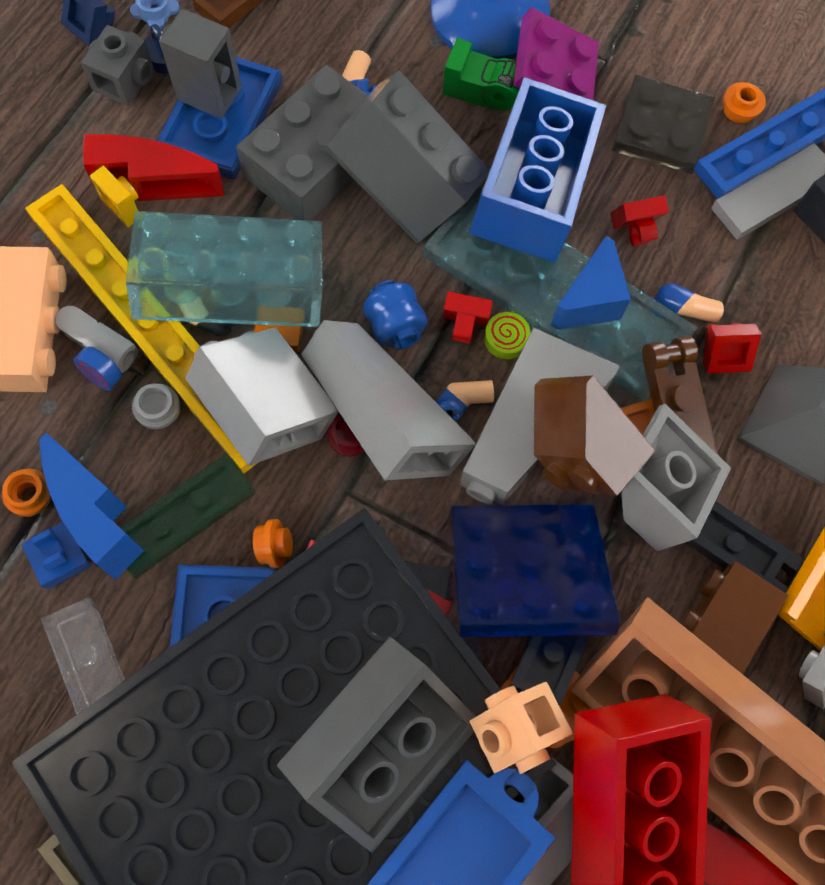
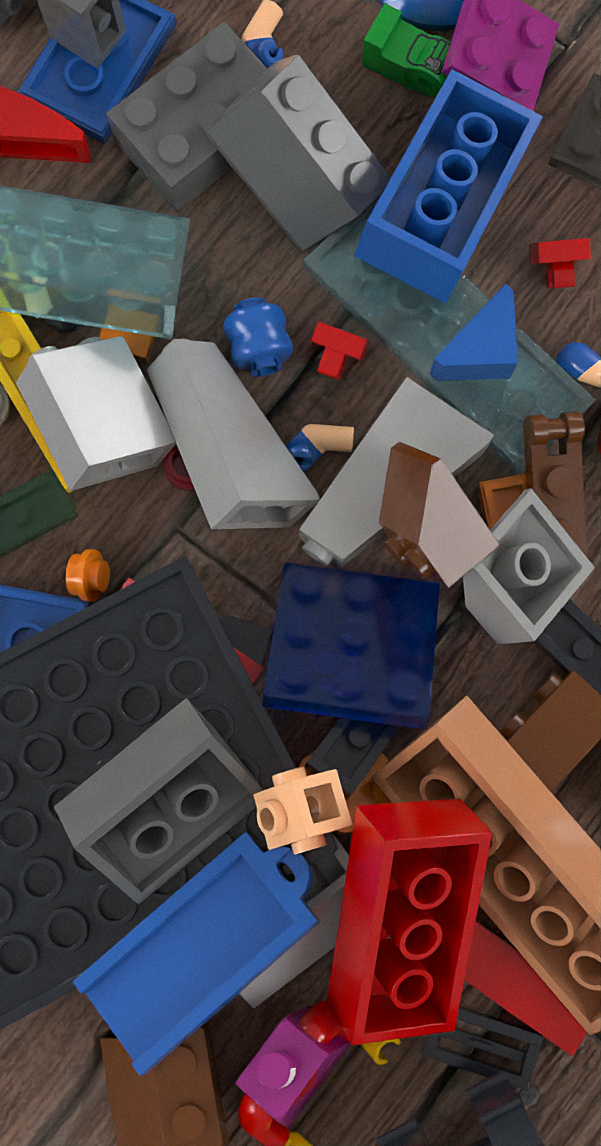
camera: 15 degrees right, 10 degrees up
(506, 335) = (380, 376): lime tile -> none

